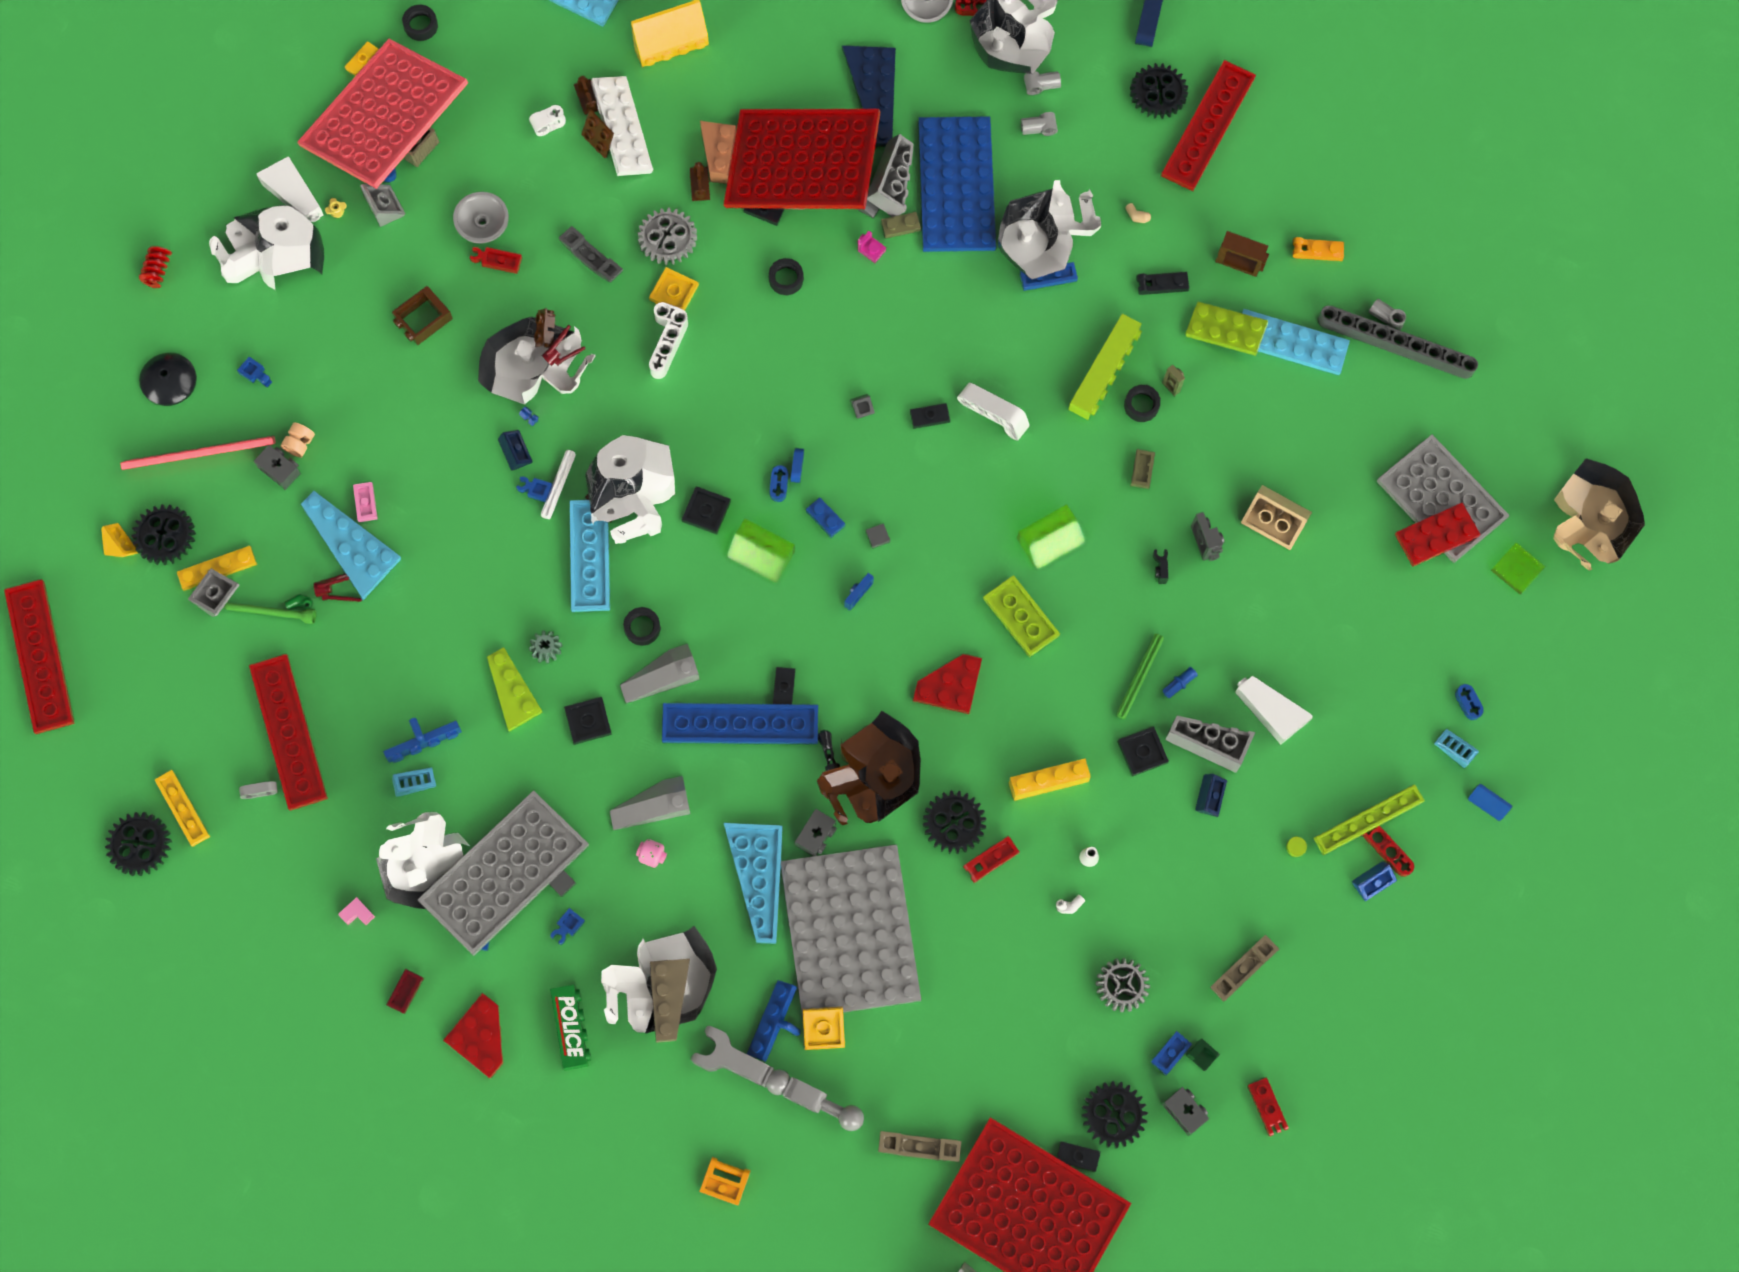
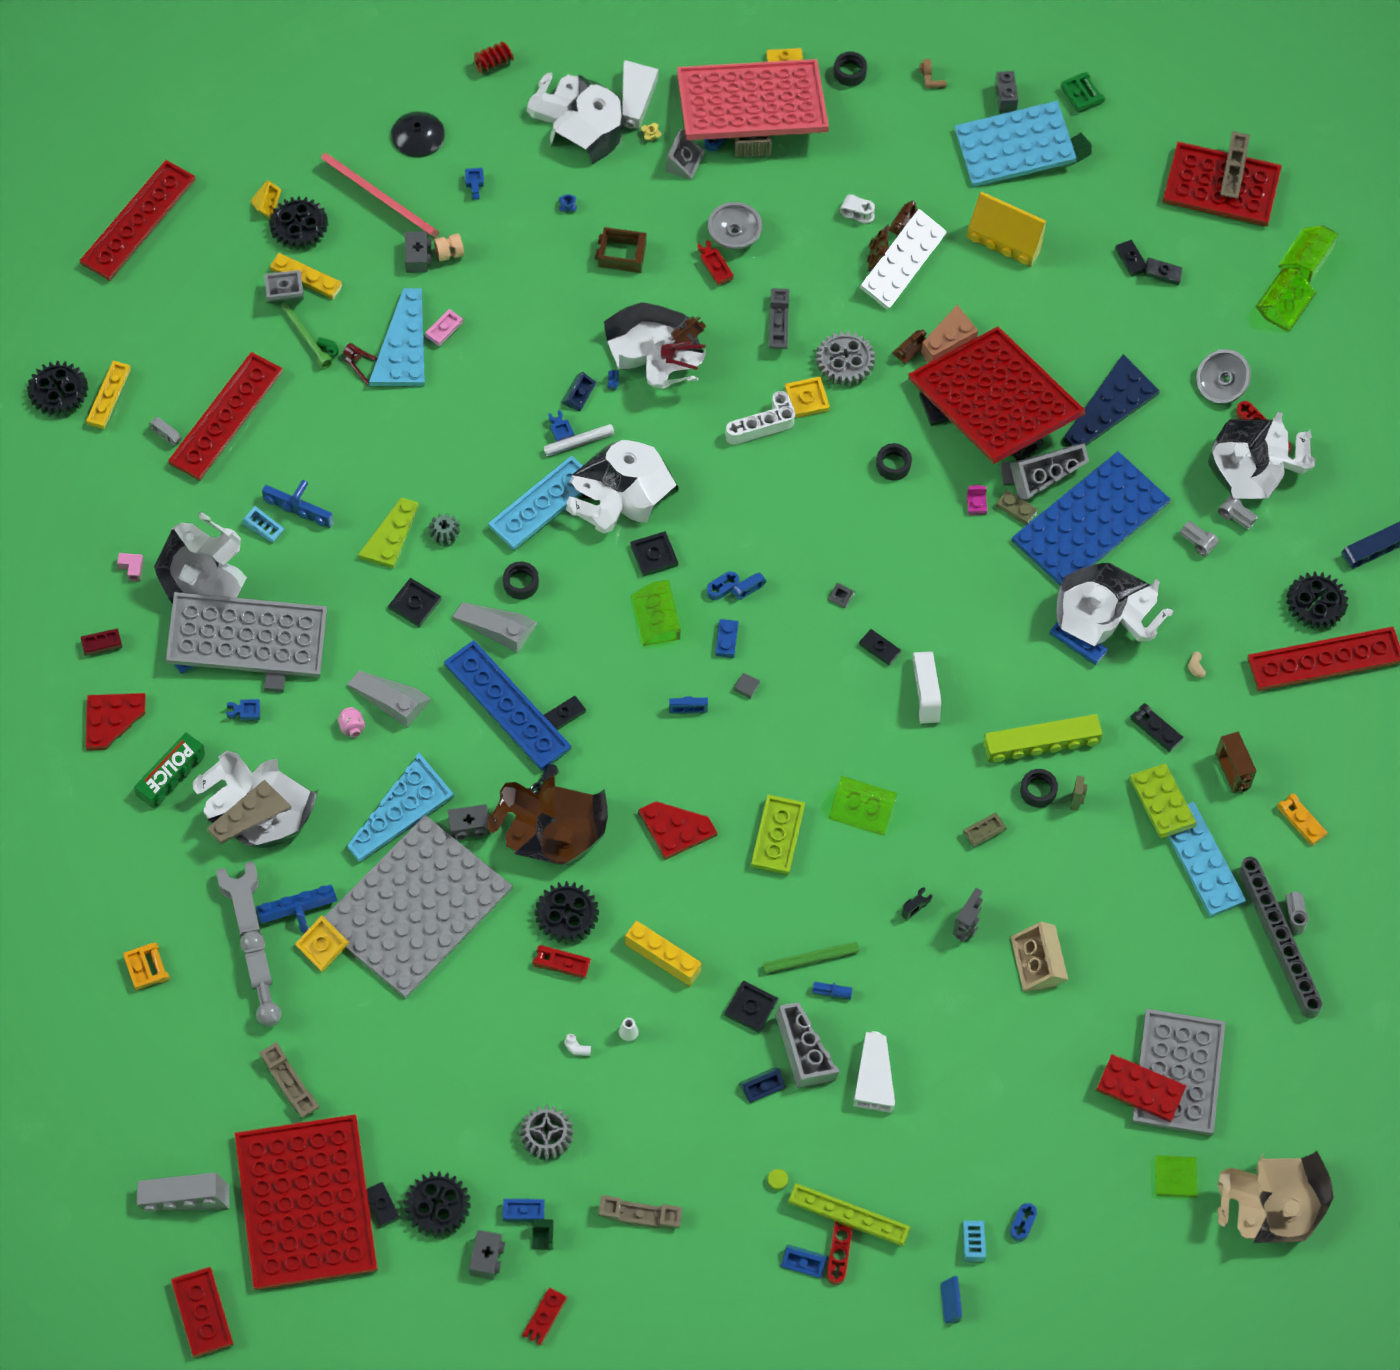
camera: 50 degrees right, 10 degrees down
(340, 315) = (567, 199): none -> blue plate

